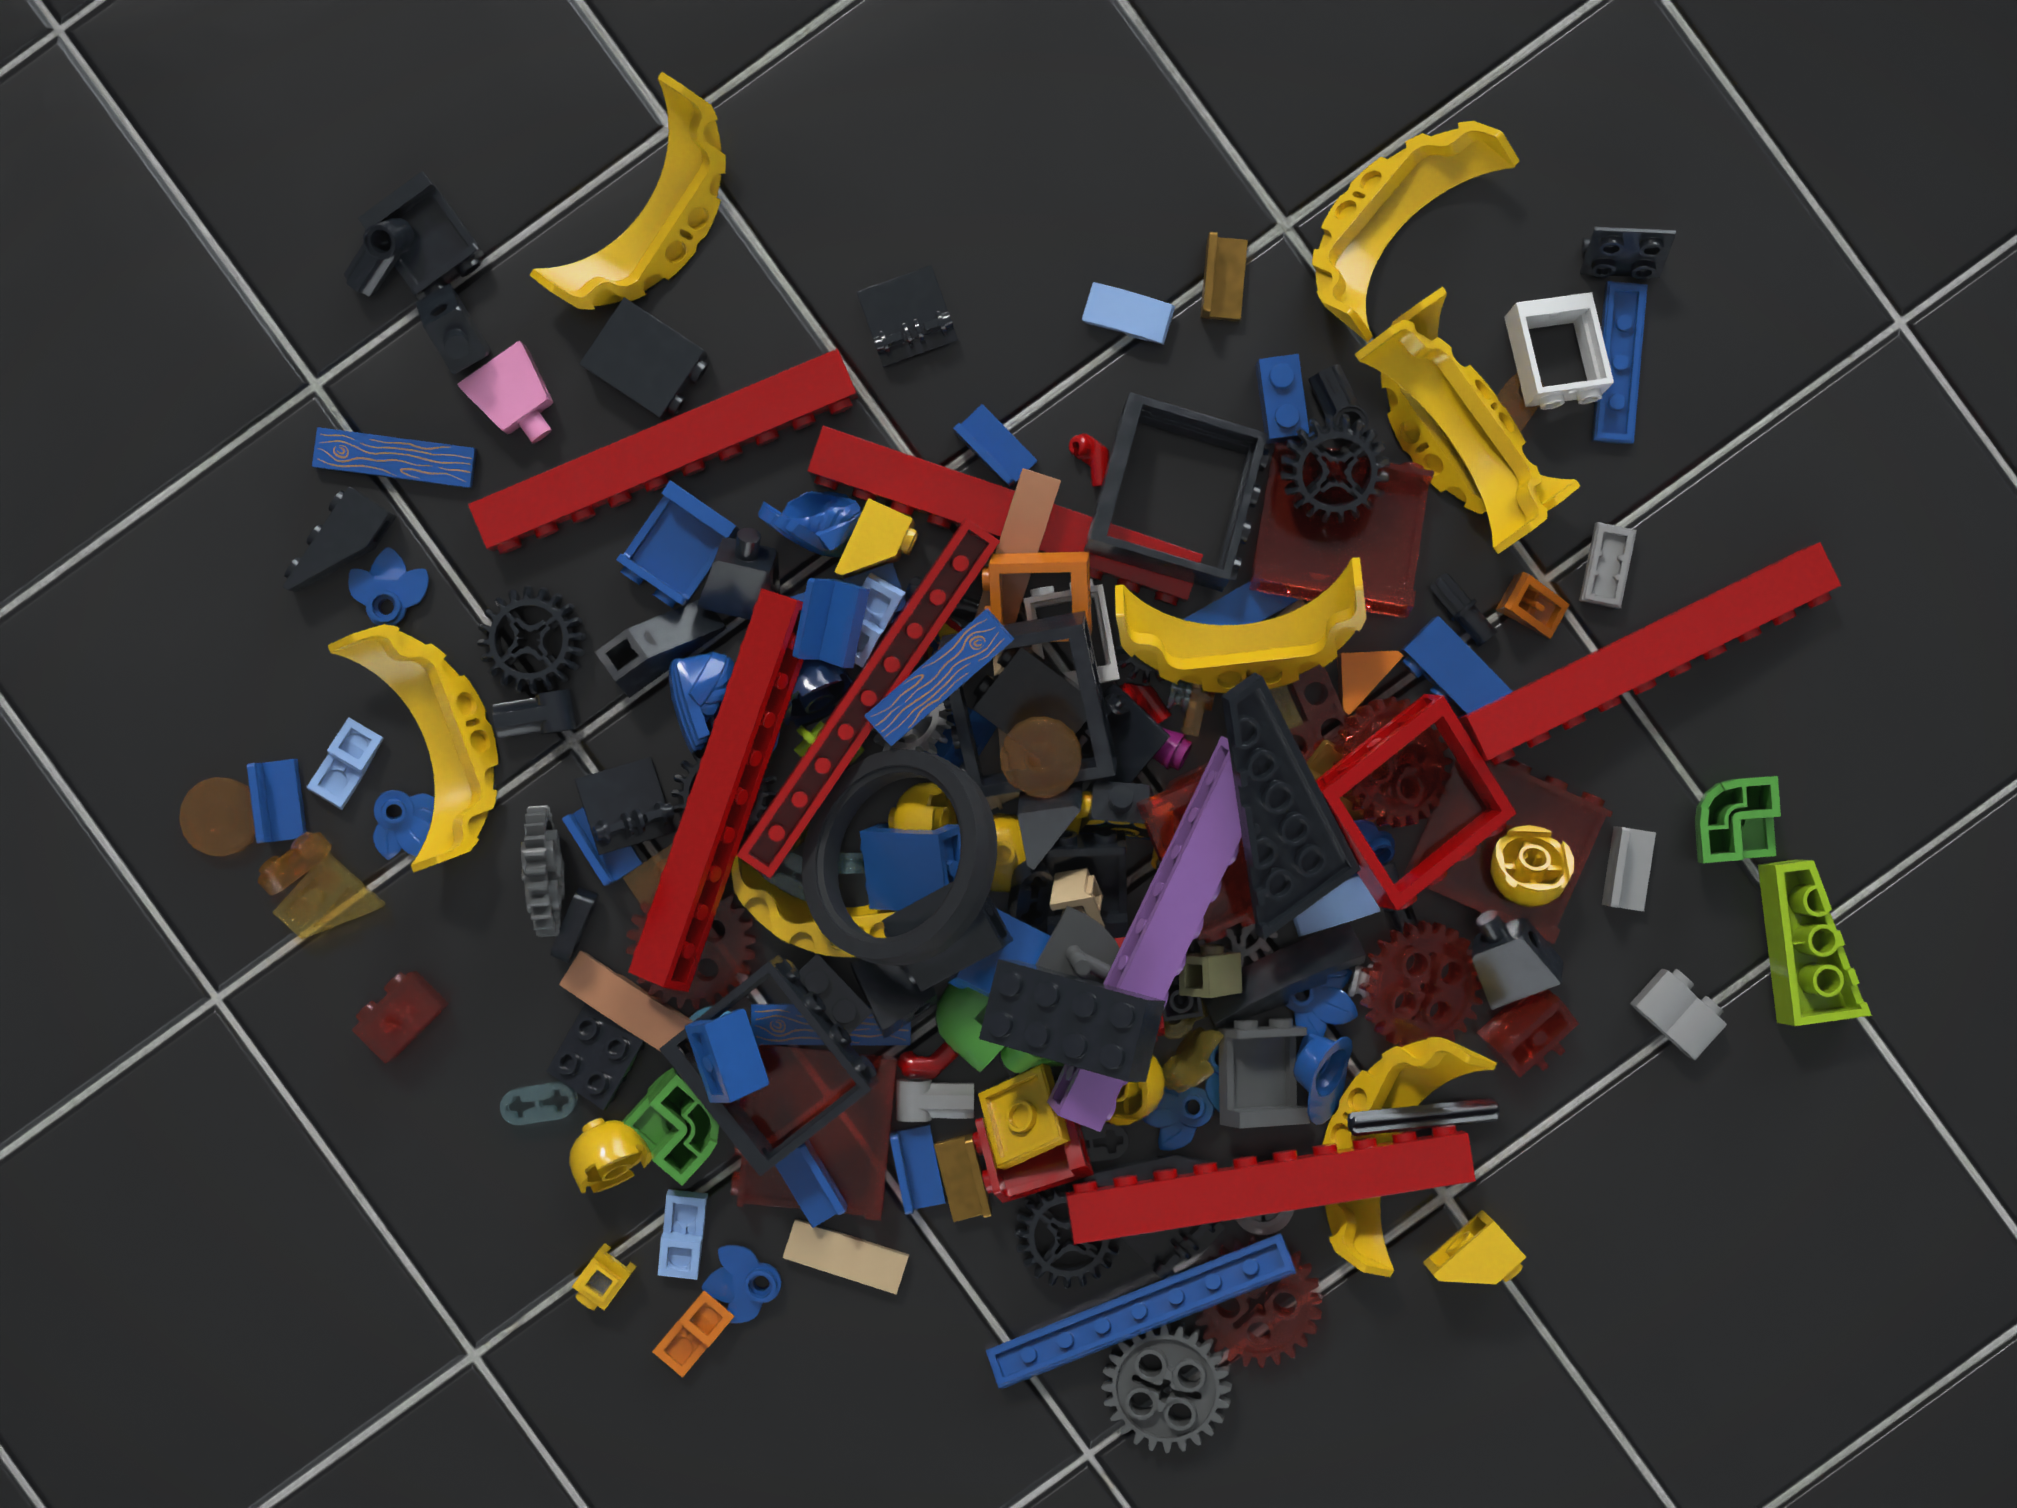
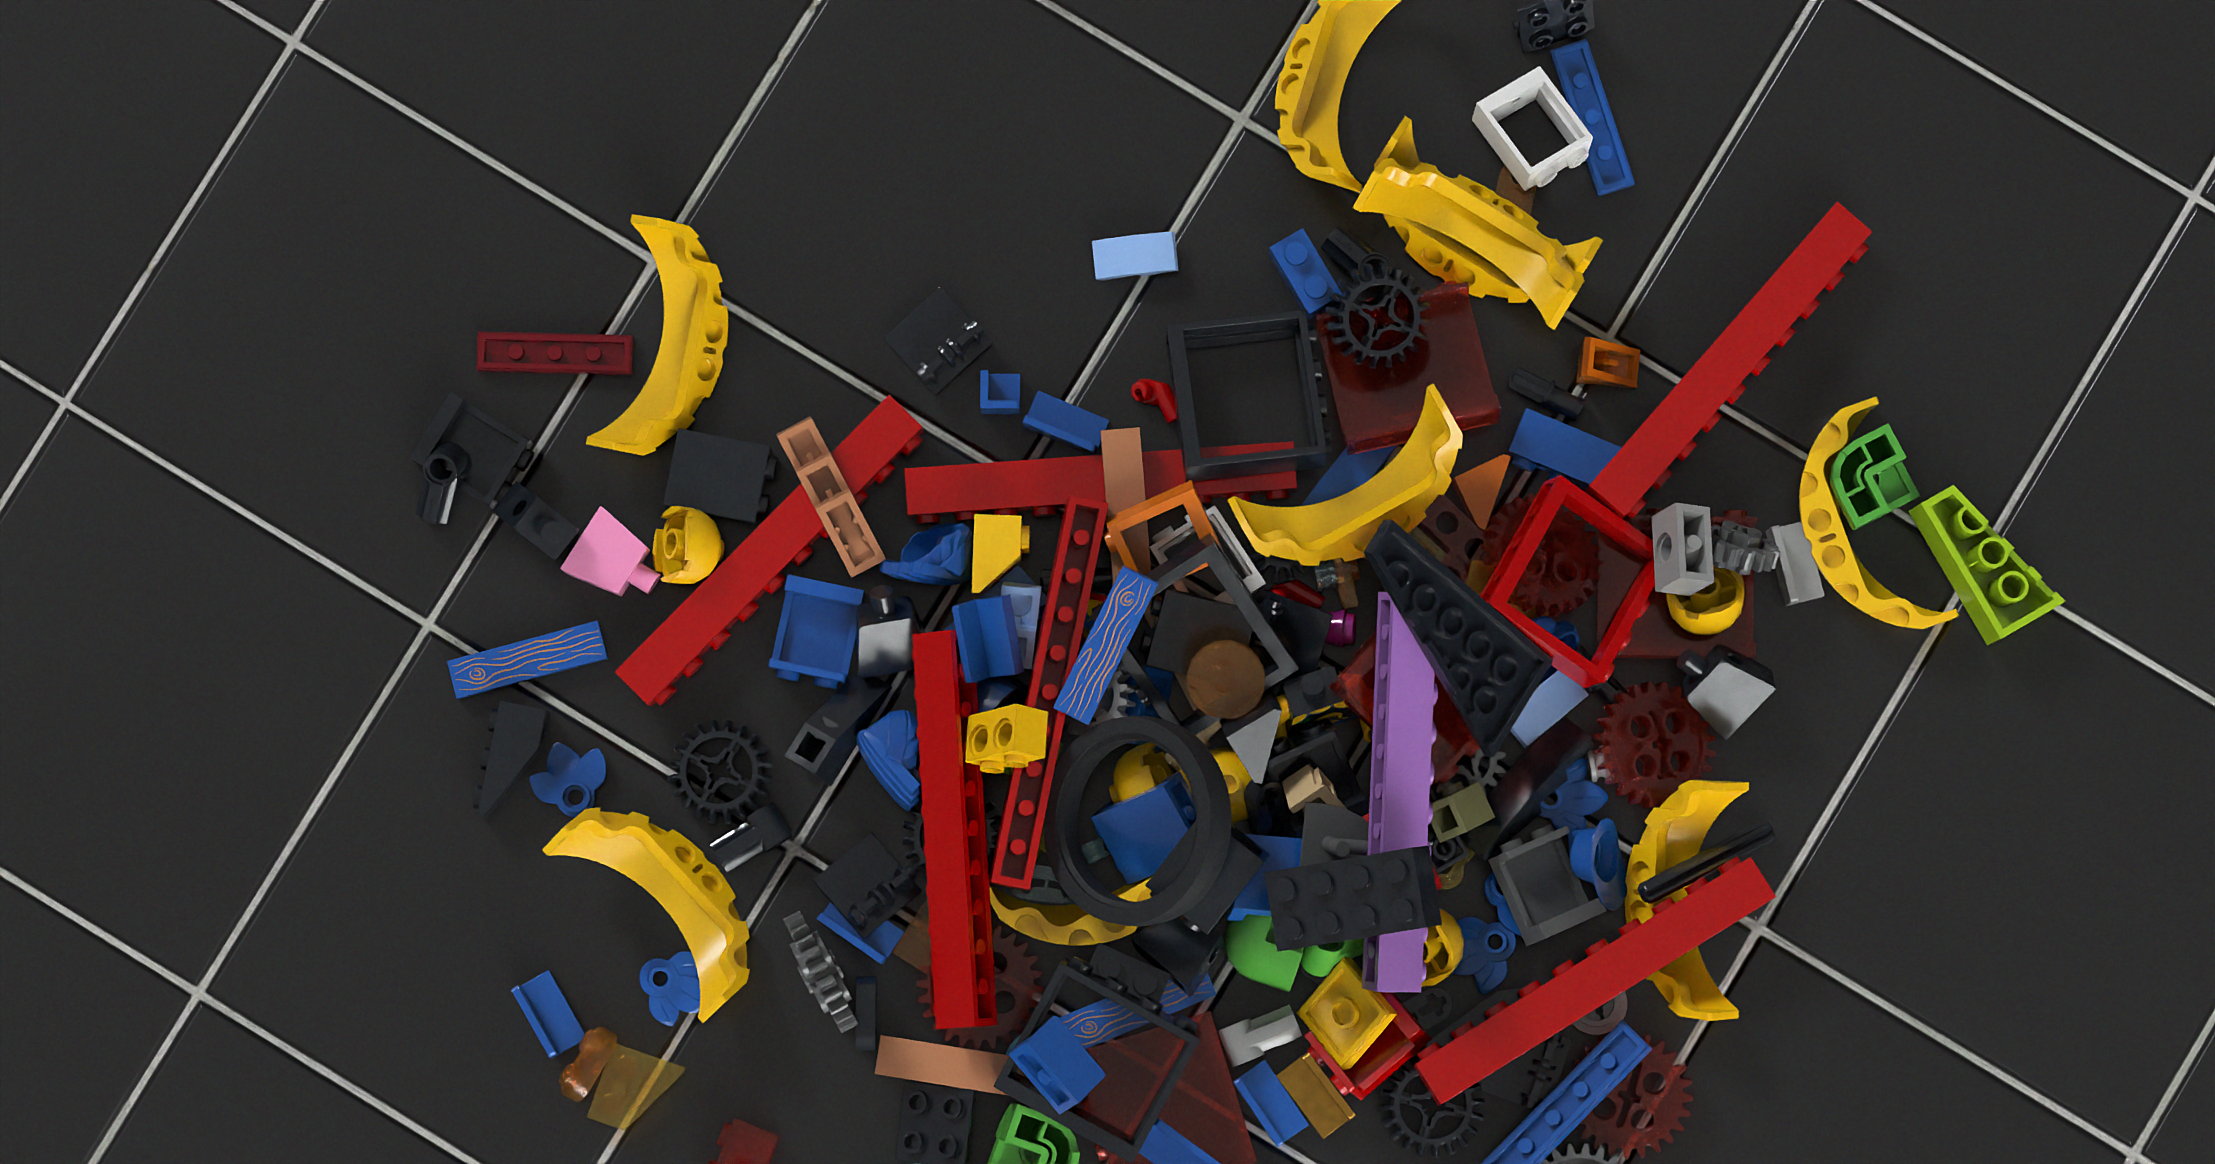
camera: 20 degrees left, 5 degrees down
(218, 816) = (502, 1051): clear orange tile -> none
(345, 763) = (596, 955): light blue slope -> none
(540, 176) = (555, 353): none -> dark red tile
(587, 413) = (686, 546): none -> yellow cylinder
(740, 423) = (831, 496): none -> nougat slope
(807, 726) = (1006, 737): none -> yellow brick
(926, 1067) = (1239, 1008): red arm -> none
(944, 391) = (999, 393): none -> blue panel
(1190, 1062) = (1476, 899): clear yellow plate -> none
(1223, 278) = (1207, 189): pearl gold panel -> none
(1476, 1254) = (1808, 963): yellow slope -> none
(1528, 1031) = (1766, 745): clear red brick -> none
(1529, 815) = (1682, 549): none -> light grey brick
(1580, 833) = (1742, 548): none -> dark grey gear
(1607, 565) = (1659, 301): light grey plate -> none
(1672, 858) = (1828, 539): none -> yellow windscreen
(1679, 1013) = (1895, 673): light grey brick -> none

